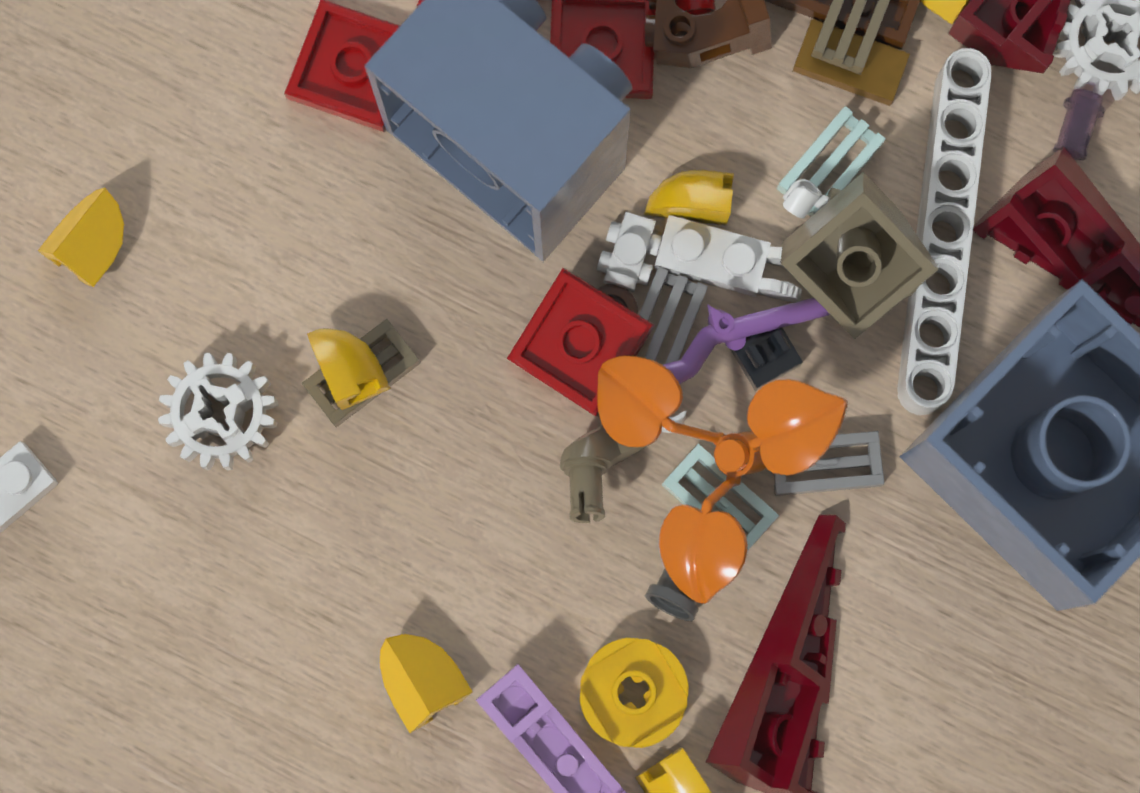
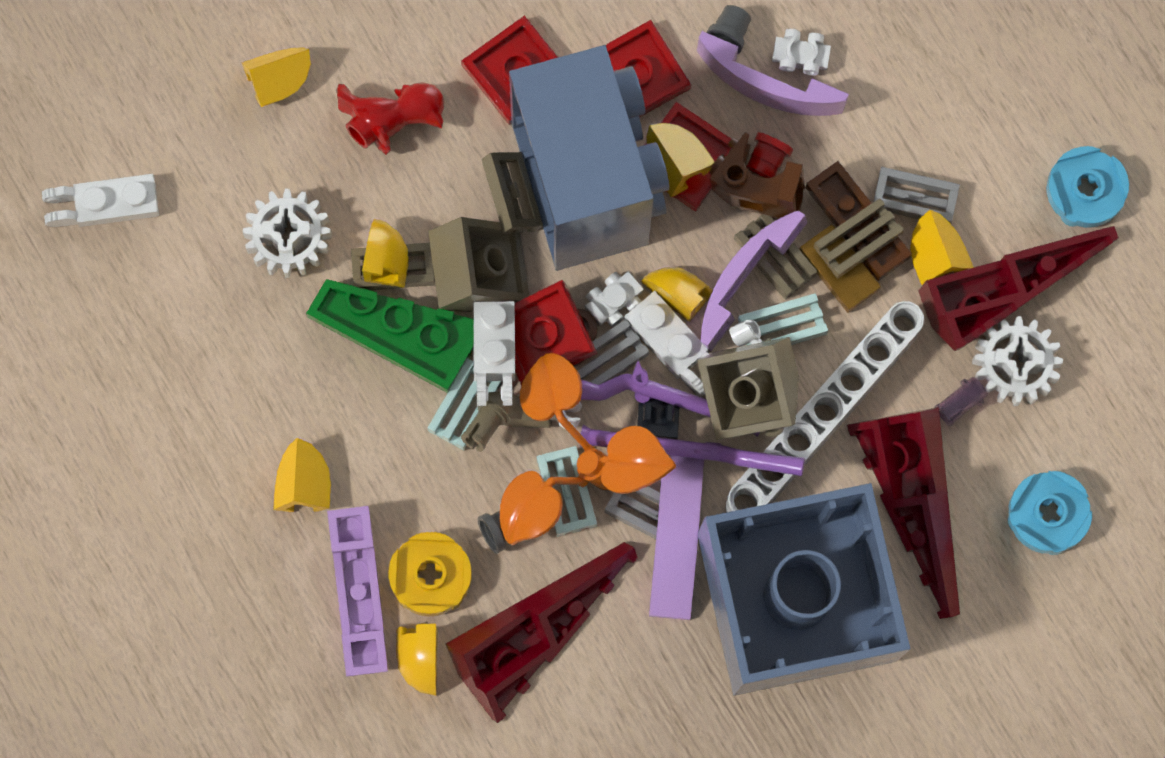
camera: 30 degrees right, 5 degrees down
(239, 214) = (381, 118): none -> red animal
(419, 440) = (411, 336): none -> green wing
(439, 205) = (506, 193): none -> dark tan tile
(456, 311) = (476, 264): none -> dark tan slope
(541, 395) = (494, 348): none -> white hinge
(541, 429) = (448, 433): none -> light aqua tile
(606, 33) = (681, 153): none -> yellow brick
(767, 70) = (780, 236): none -> lavender slope
(775, 72) = (765, 267): none -> dark tan tile
(850, 354) = (712, 451): none -> medium lavender piece
(882, 480) = (677, 540): none -> lavender slope

